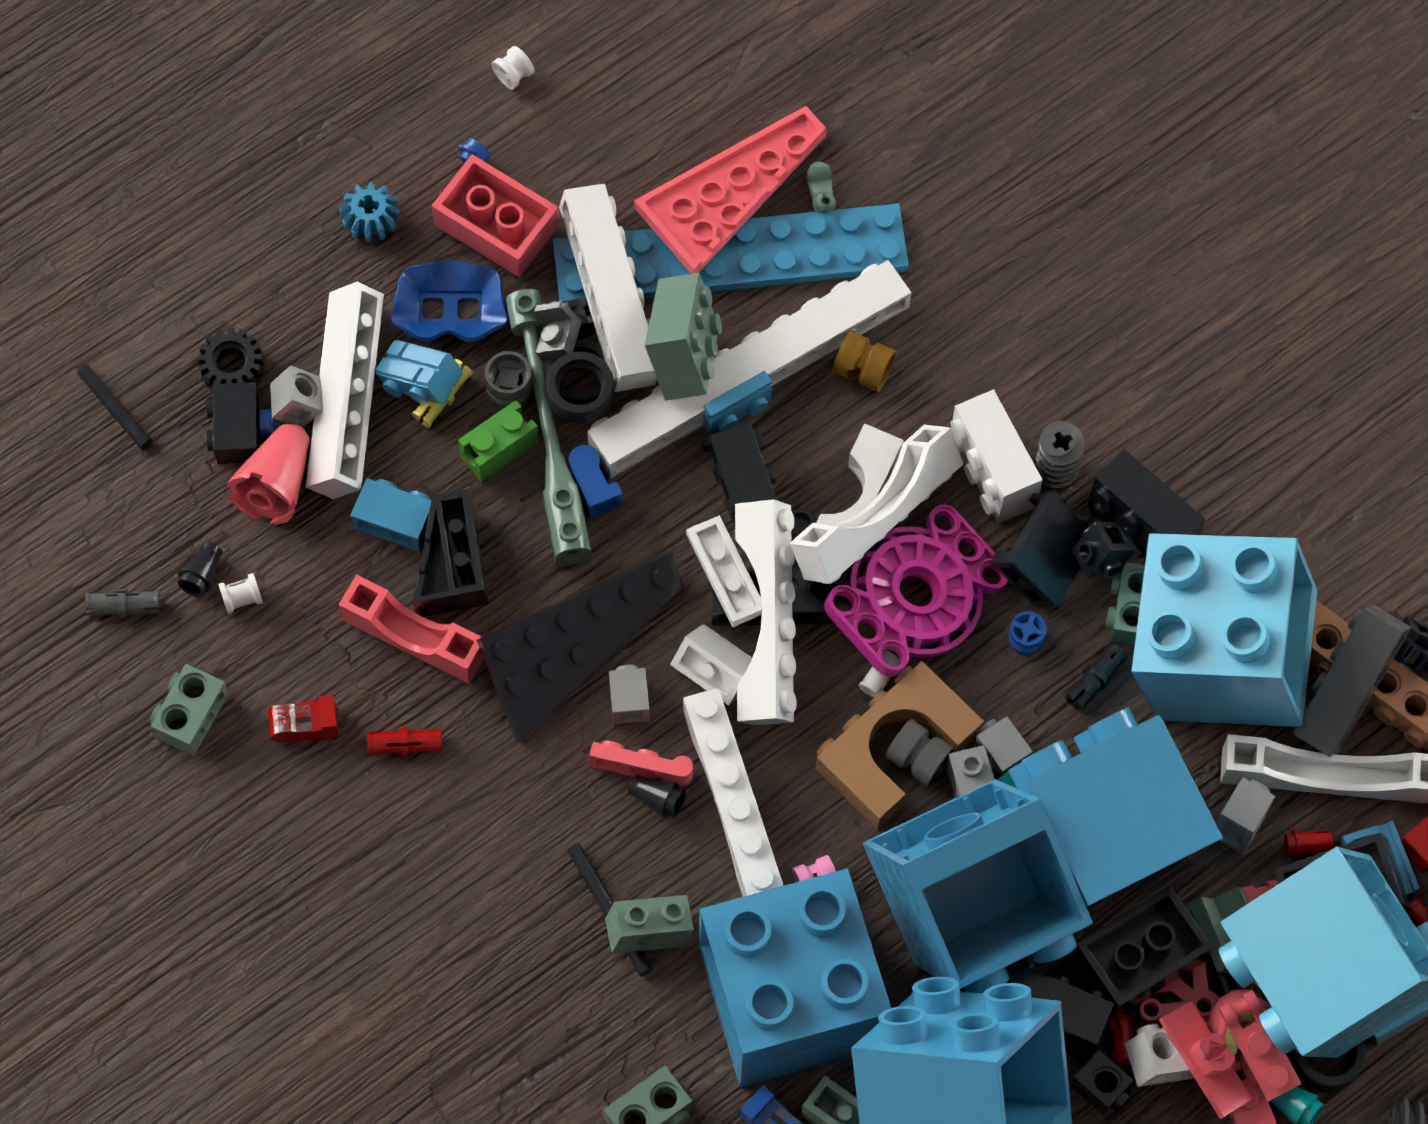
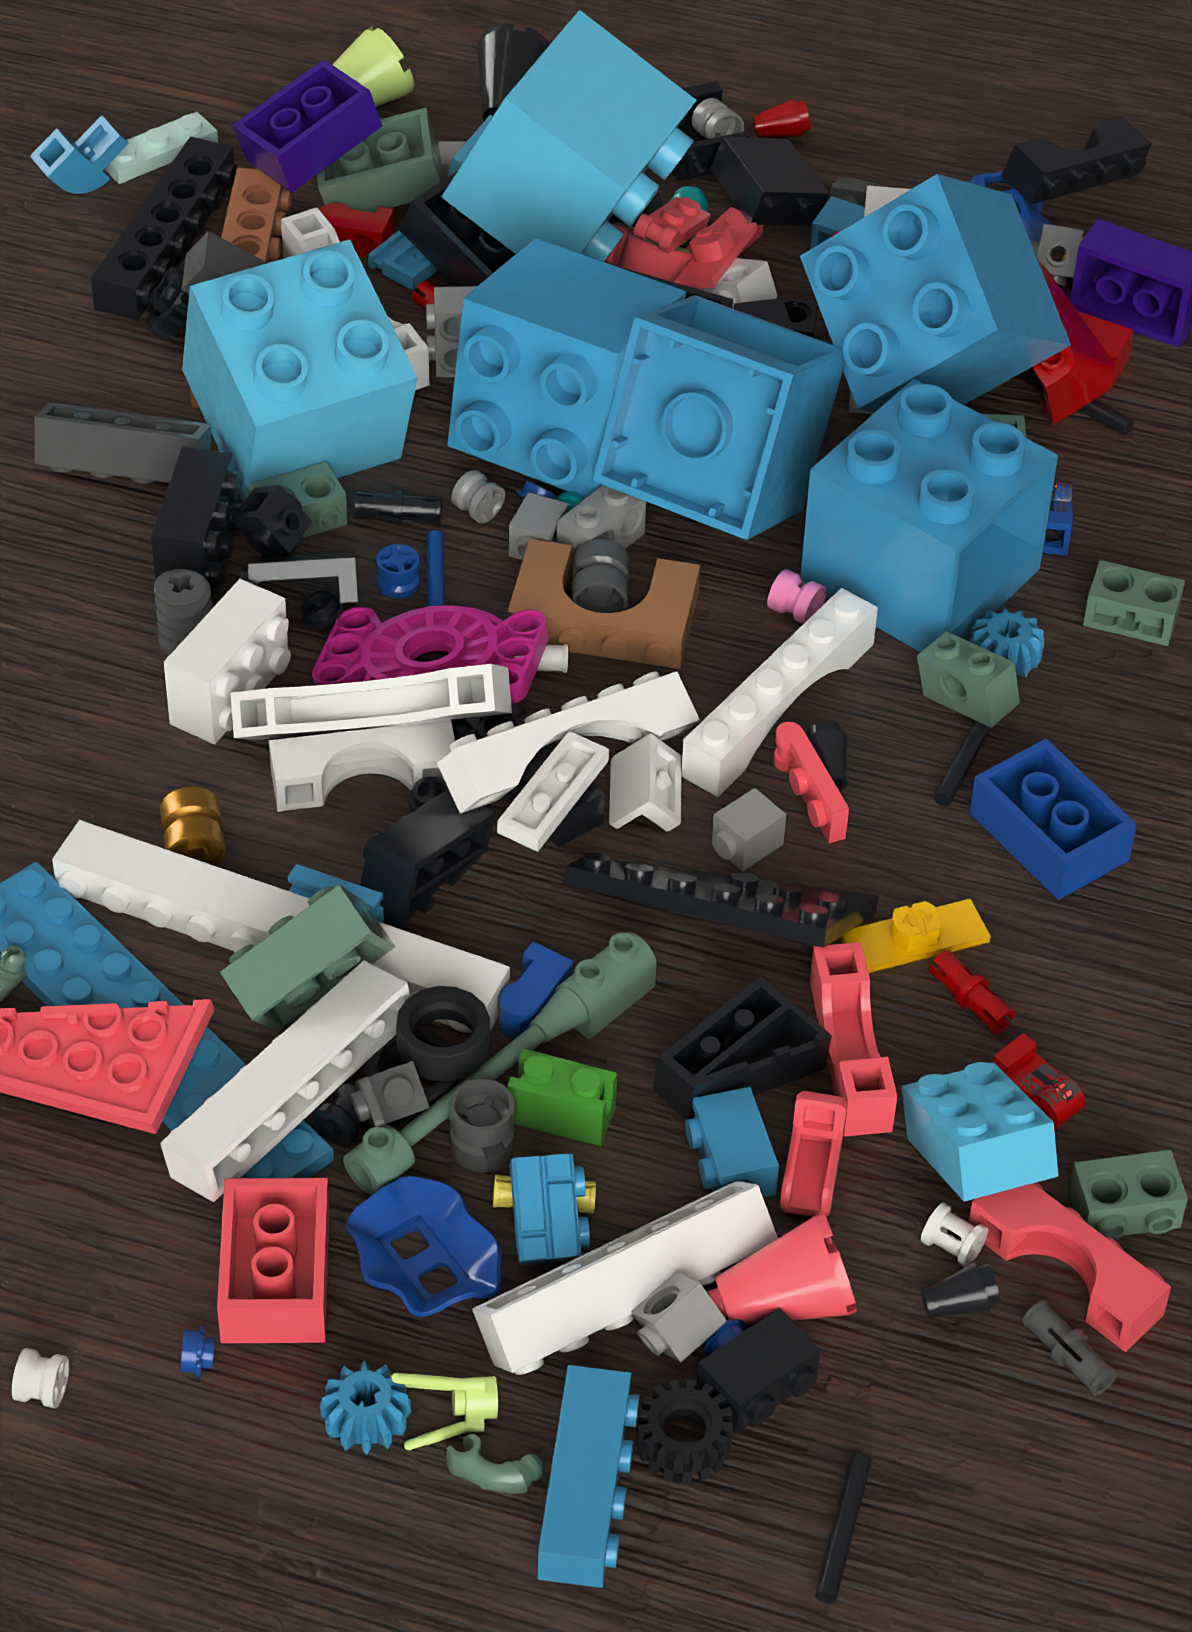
camera: 125 degrees left, 20 degrees down
(131, 654) = (1122, 1291): none -> coral arch
(238, 288) = (585, 1477): none -> dark azure brick
(274, 258) = (504, 1478): none -> sand green piece
(282, 637) = (979, 1130): none -> medium azure brick
(334, 268) = (472, 1397): none -> yellowish green plant
(346, 547) = (813, 1154): none -> coral animal
(476, 748) = (919, 933): none -> yellow piece
(491, 884) = (1052, 818): none -> blue brick
(657, 988) = (1011, 638): none -> dark azure gear
(1009, 660) = (435, 568): none -> blue bar
(1064, 728) = (478, 496): none -> light grey wheel
(1287, 502) = (114, 442): none -> dark grey brick

